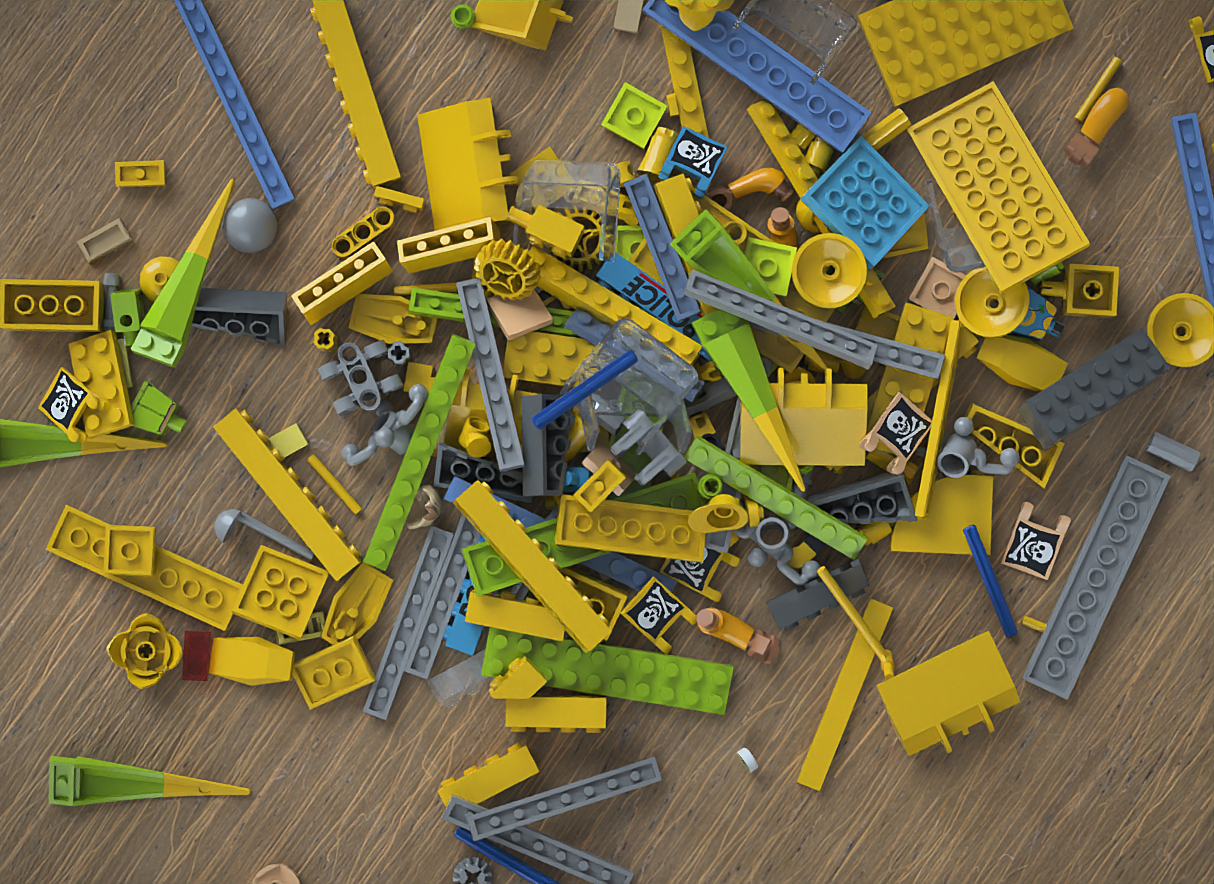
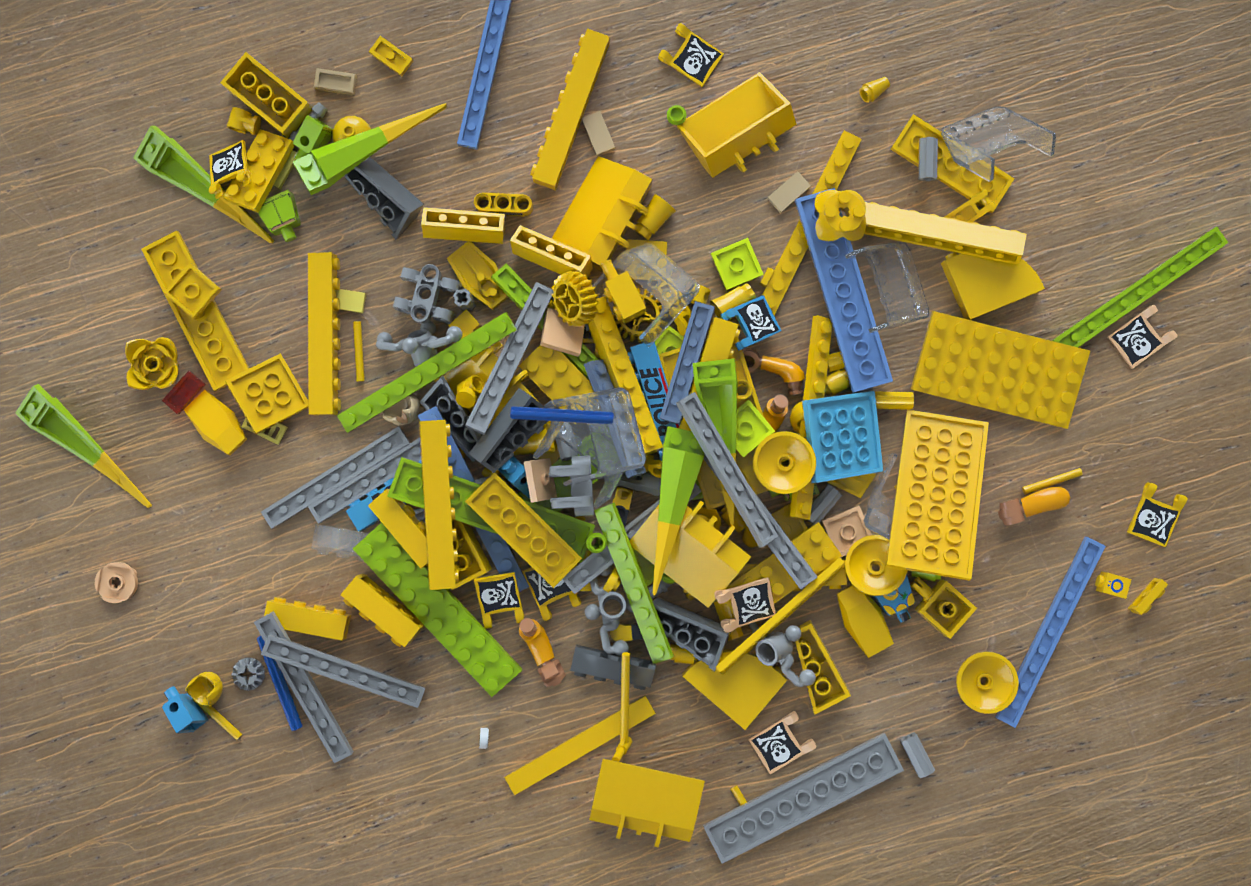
camera: 40 degrees right, 0 degrees up
(46, 349) = (243, 121): none -> yellow piece
(228, 519) = (271, 321): light grey piece -> none
(249, 225) = (434, 143): light grey piece -> none
(320, 334) = (423, 253): yellow axle -> none
(332, 672) = (261, 471): yellow tile -> none
(356, 604) = (310, 441): yellow piece -> none
(389, 197) = (538, 194): yellow plate -> none
(400, 92) = (598, 133): none -> tan tile
(441, 287) = (527, 279): yellow bar -> none
(519, 682) = (371, 573): yellow slope -> none
(520, 124) = (657, 214): none -> yellow plant
(599, 485) = (523, 486): yellow plate -> none
(719, 514) = (587, 565): yellow piece -> none
(897, 281) = (823, 503): none -> light grey axle
(990, 580) = (732, 746): blue axle -> none
(1093, 389) = (897, 675): dark grey brick -> none

